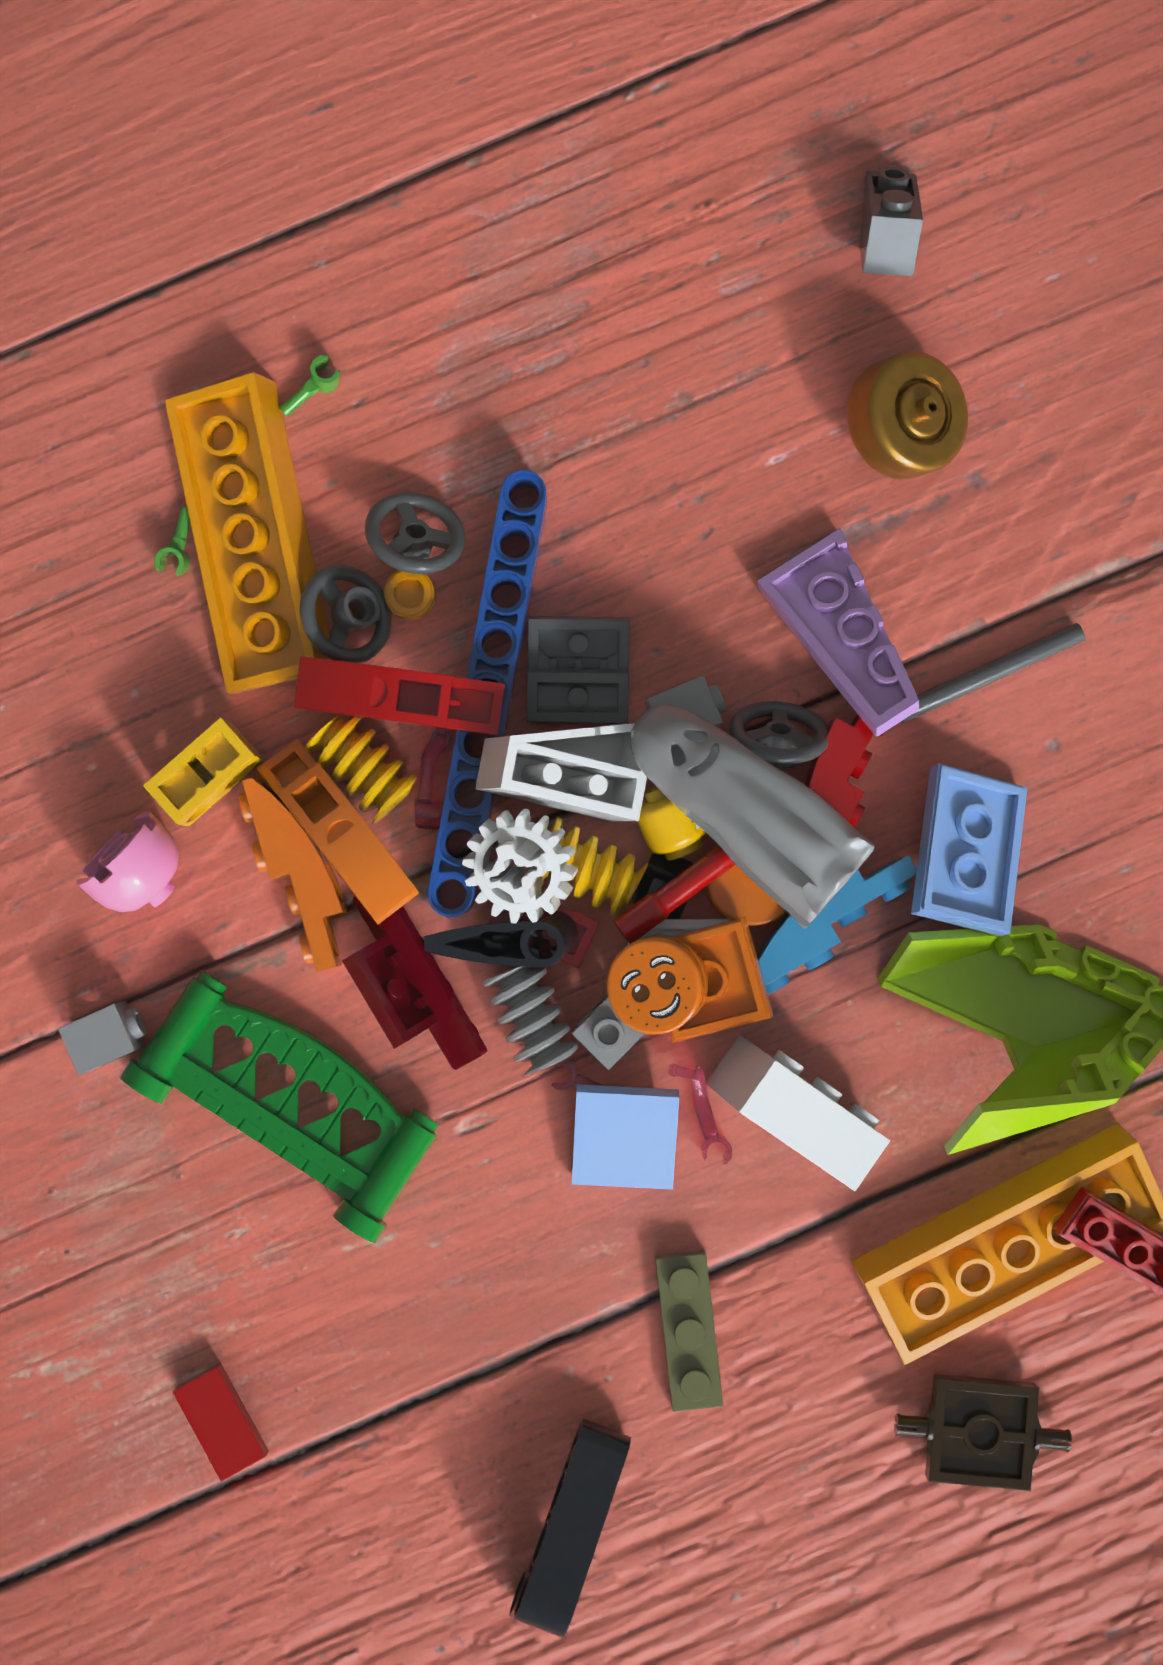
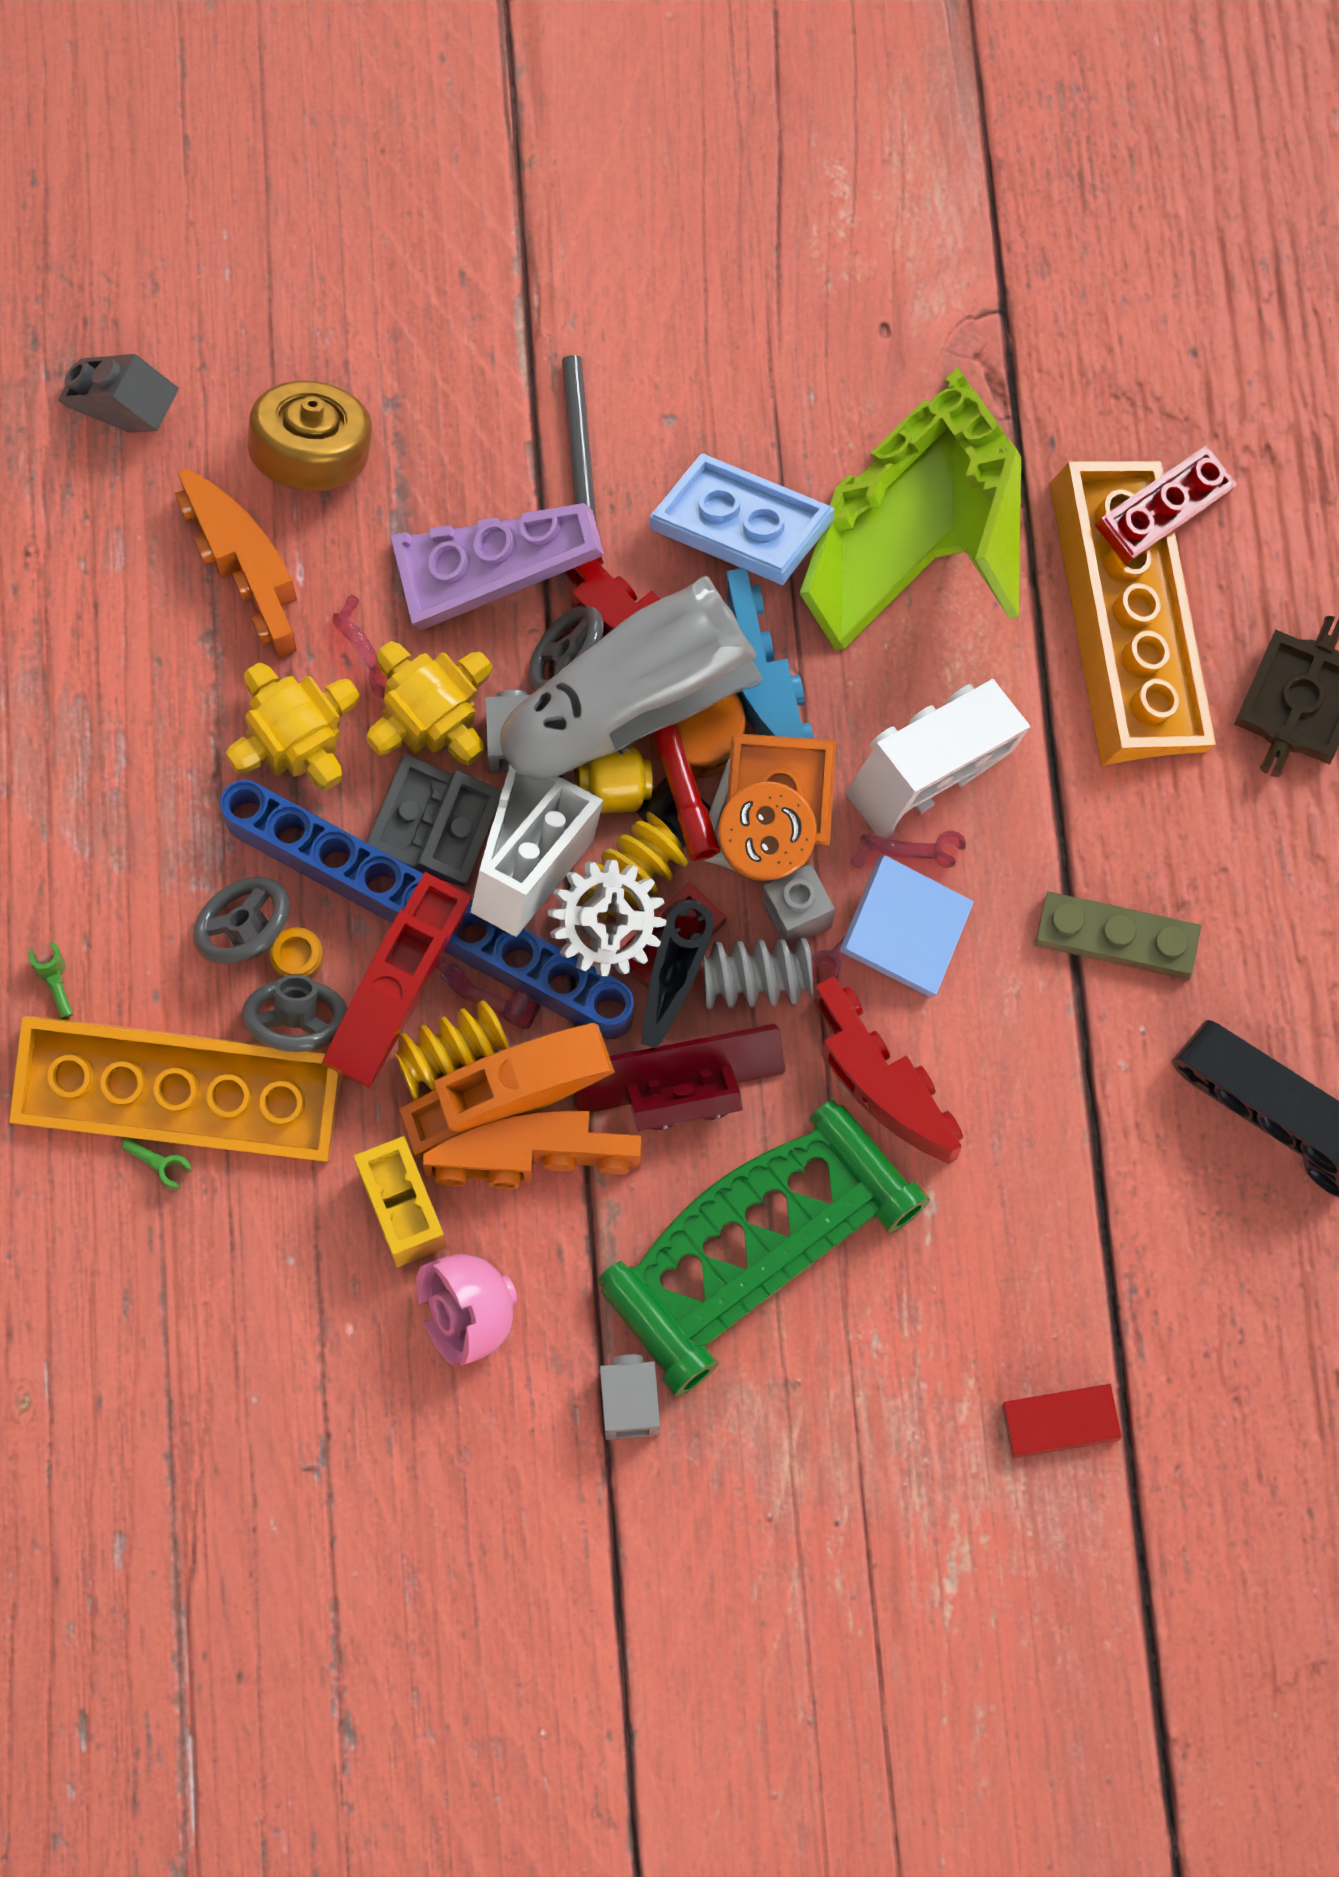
camera: 70 degrees left, 15 degrees down
(463, 1177) = (891, 1093): none -> red slope
(616, 508) = (292, 726): none -> yellow piece
(683, 625) = (429, 703): none -> yellow piece
(723, 542) = (360, 643): none -> clear pink piece
(778, 388) = (245, 552): none -> orange slope

